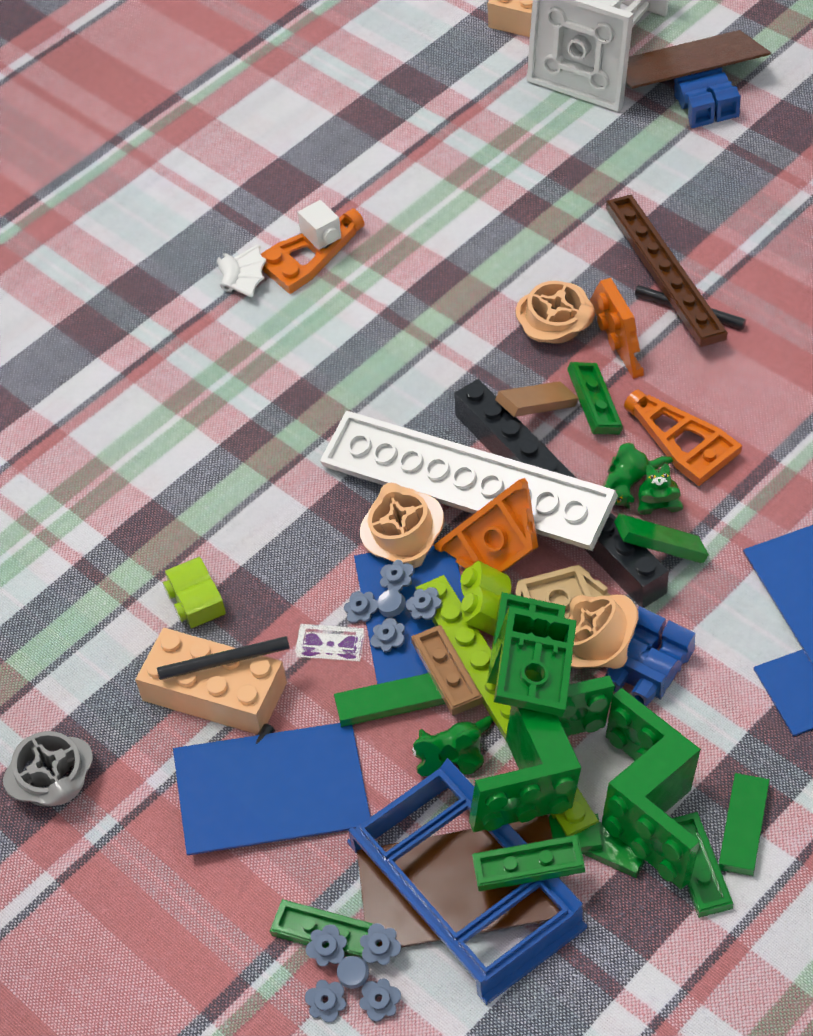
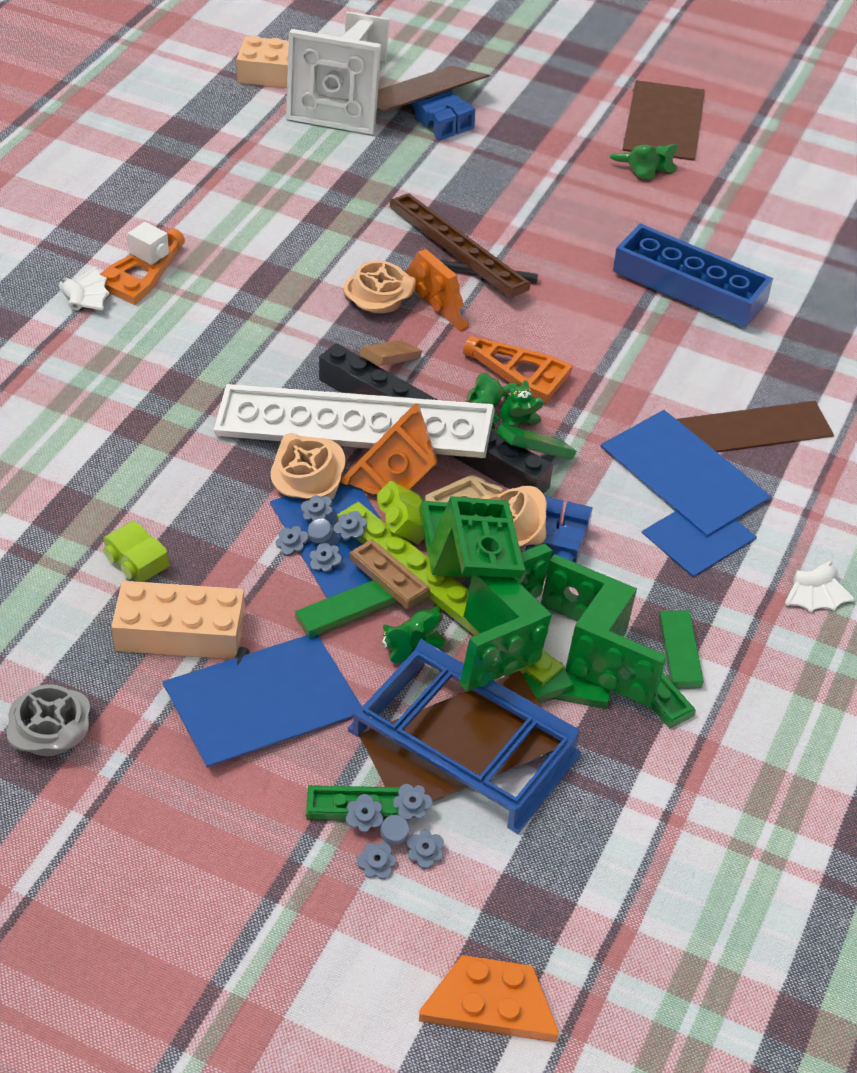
camera: 25 degrees left, 5 degrees down
(223, 658) = (190, 593): black bar -> none
(330, 642) = (274, 572): clear tile -> none
(528, 863) = (522, 706): green tile -> none
(594, 398) = (436, 348): green tile -> none

